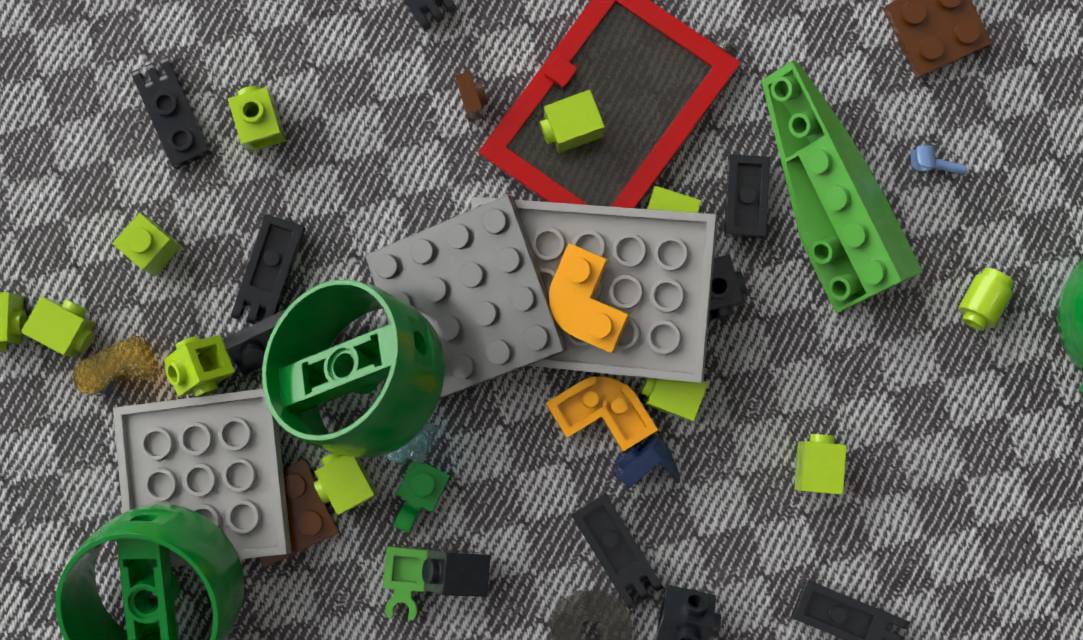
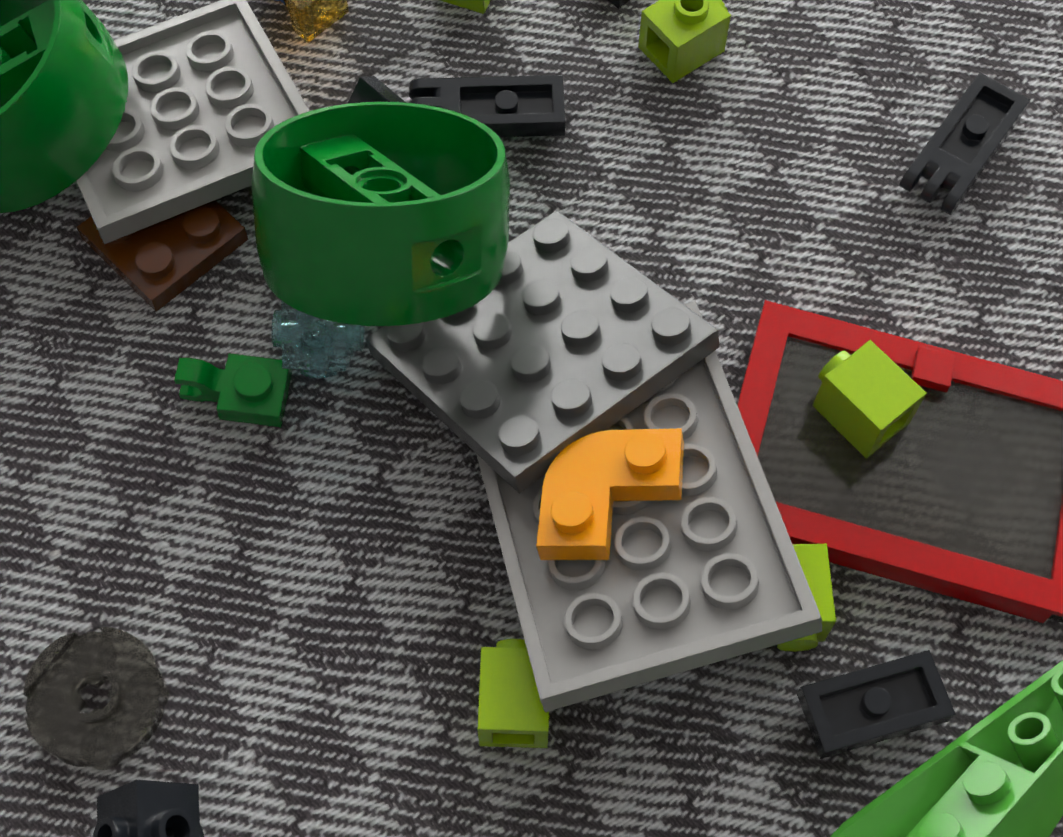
camera: 70 degrees right, 20 degrees down
(198, 366) = (327, 59): lime brick -> none
(343, 482) = (224, 285): lime brick -> none
(403, 575) = (115, 406): bright green plate -> none
(456, 572) = (131, 461): black brick -> none
(472, 96) = (838, 264): reddish brown plate -> none
(606, 400) = (465, 594): light orange plate -> none
(615, 548) = (234, 692): black hinge -> none
(637, 462) = (383, 671): dark blue plate -> none
(731, 287) = (710, 703): black brick -> none

